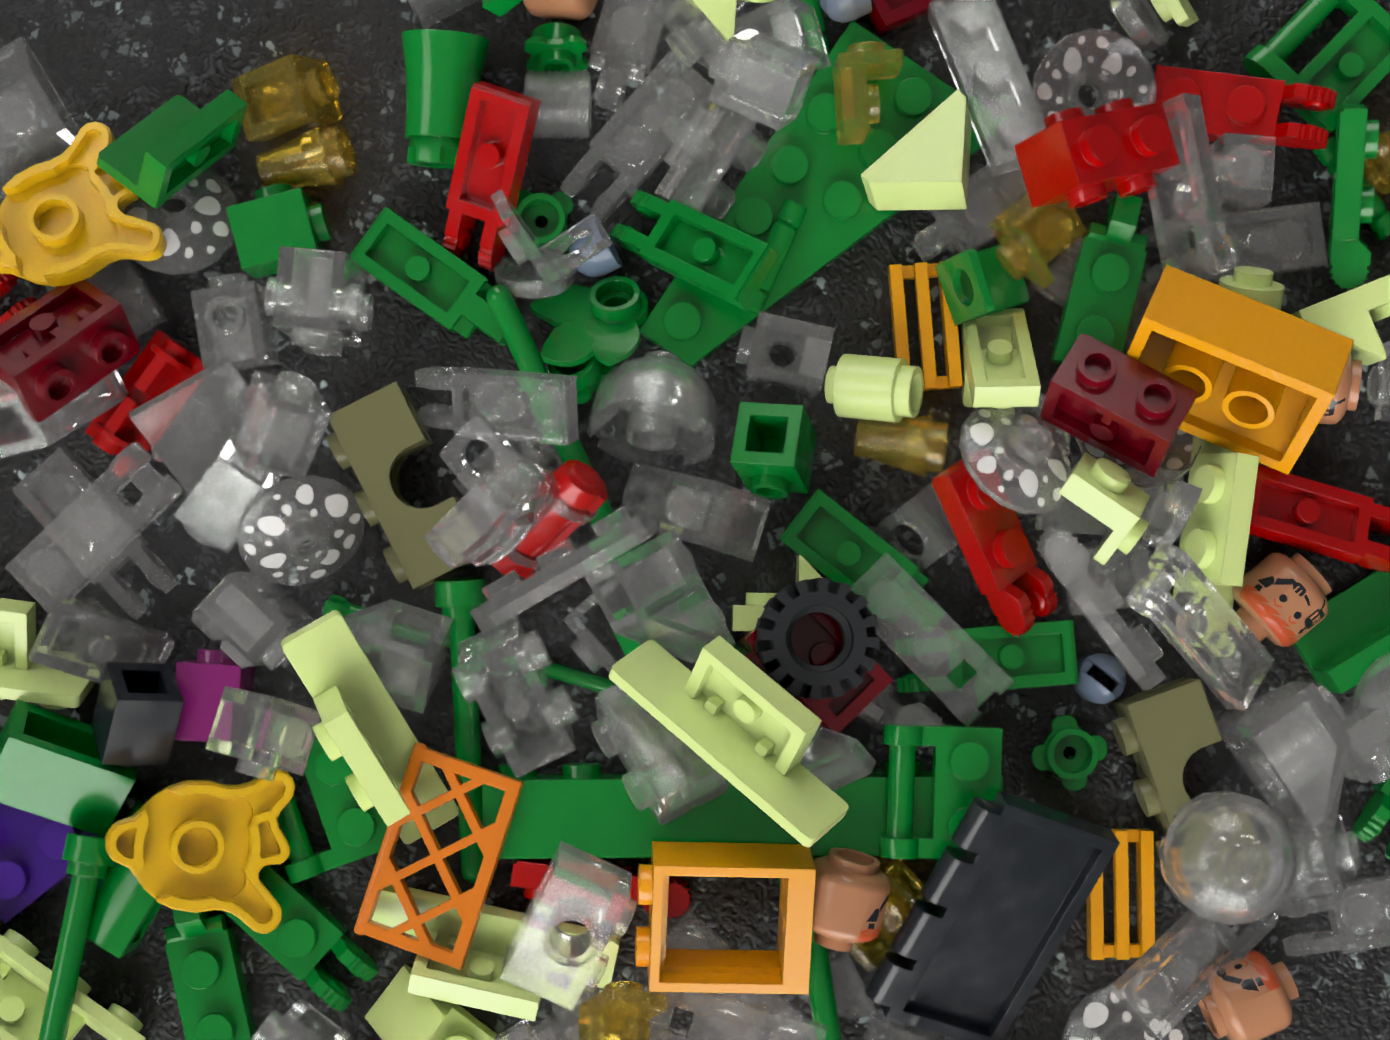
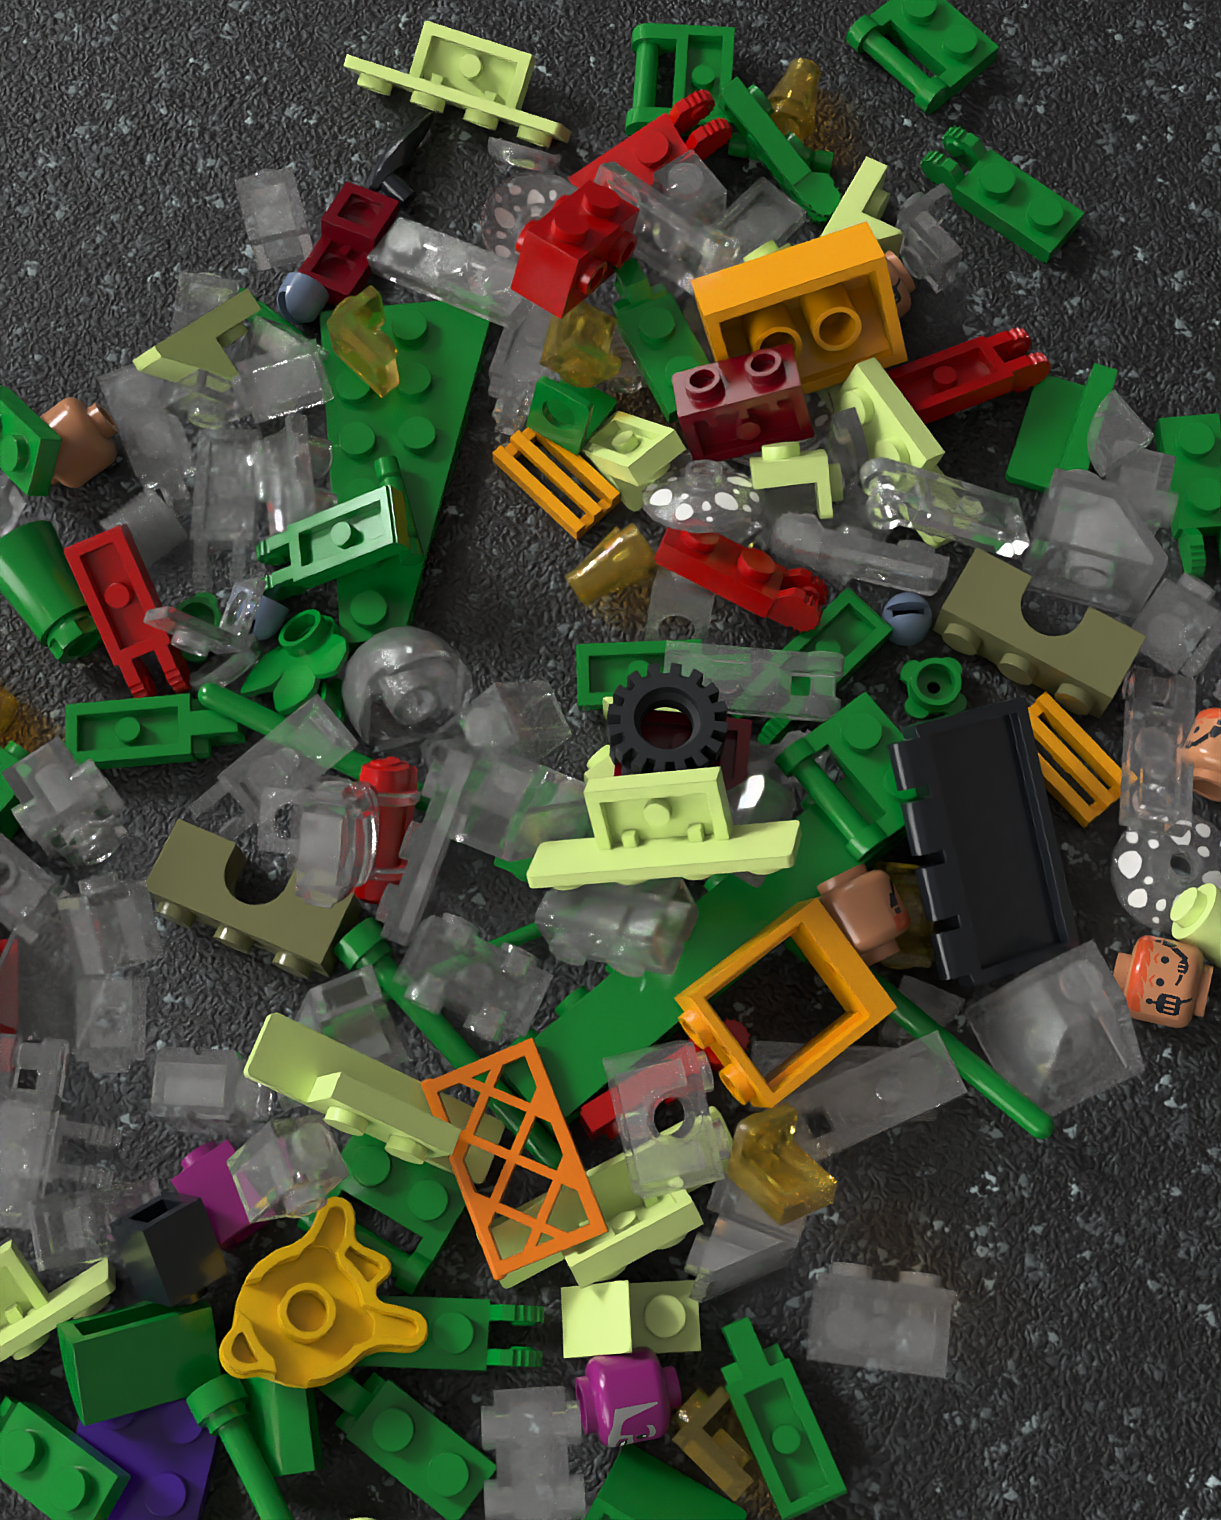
camera: 40 degrees left, 15 degrees down
(299, 512) = (170, 991): clear dish -> none
(556, 48) = (108, 490): green plate -> none
(588, 644) = (499, 901): clear bracket -> none
(773, 449) = (516, 637): green brick -> none
(808, 342) = (472, 551): clear brick -> none
(874, 388) = (555, 540): yellowish green brick -> none
(927, 165) = (457, 357): yellowish green slope -> none
(1229, 858) = (1115, 648): clear cylinder -> none
(1282, 598) = (985, 449): nougat head -> none

